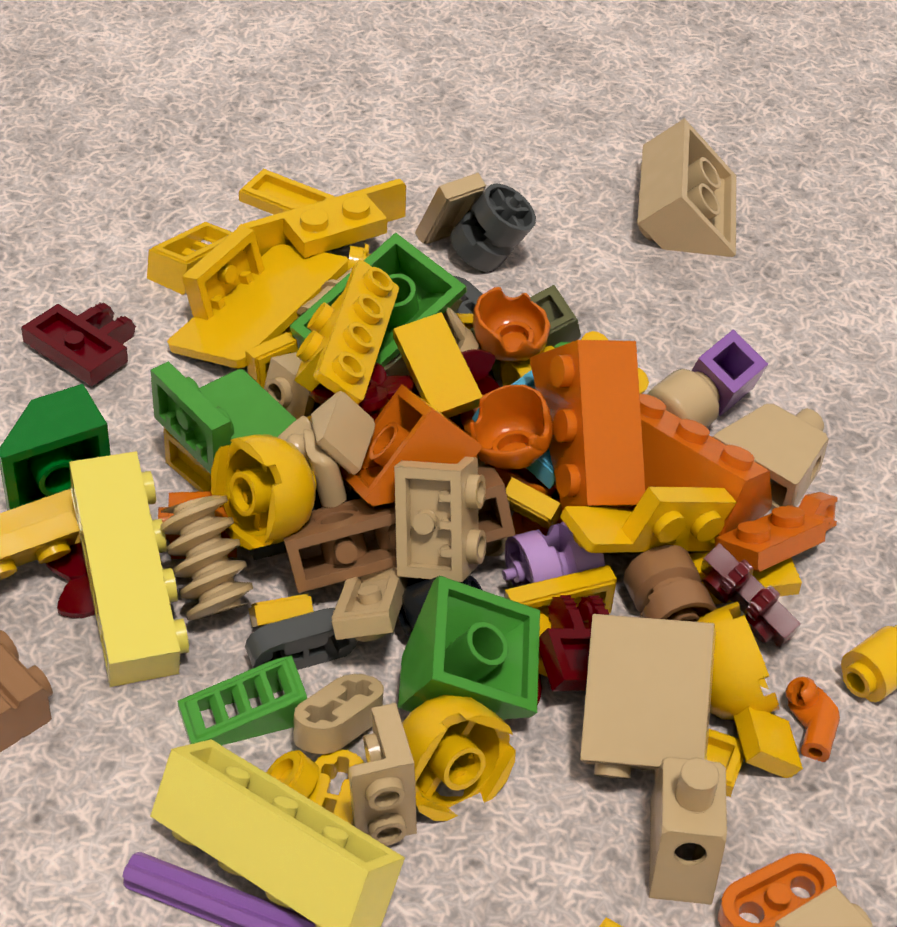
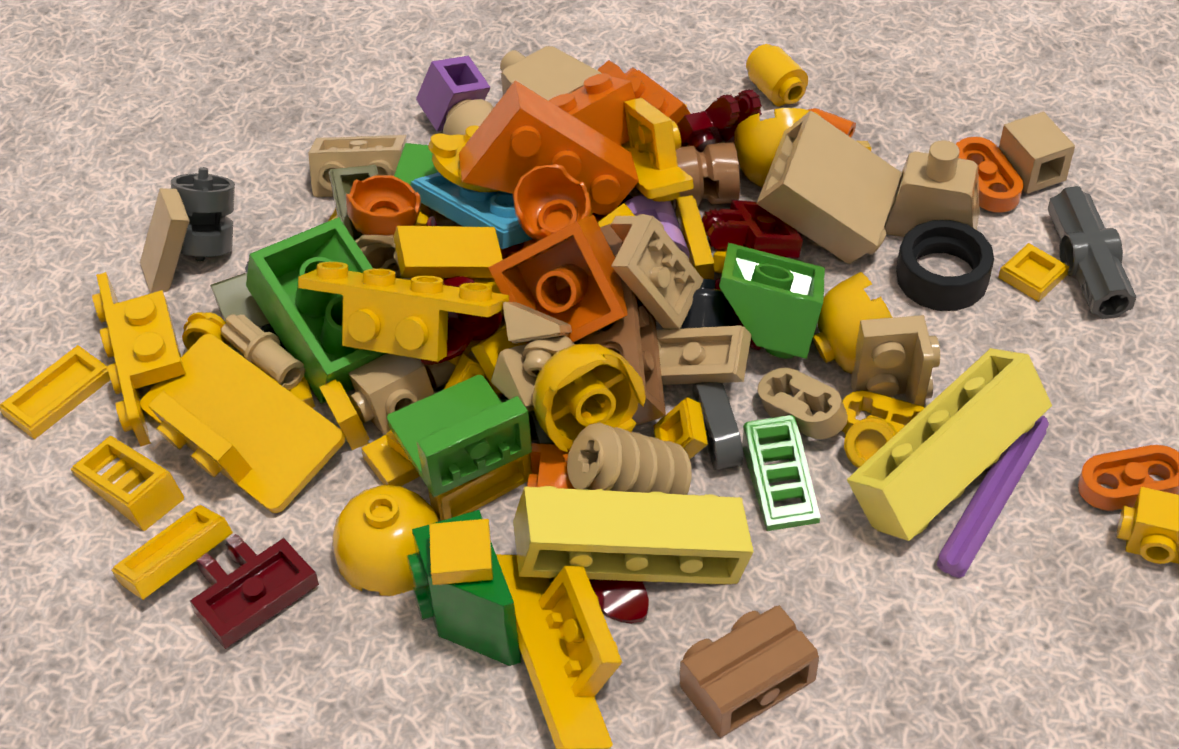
camera: 75 degrees left, 5 degrees up
(48, 410) = (460, 552): none -> yellow tile
(116, 290) = (171, 551): none -> yellow tile
(127, 407) = (376, 536): none -> yellow cylinder
(584, 891) = (939, 291): none -> black tyre
(620, 317) = (352, 152): none -> tan bracket
(687, 194) = (178, 84): tan slope -> none

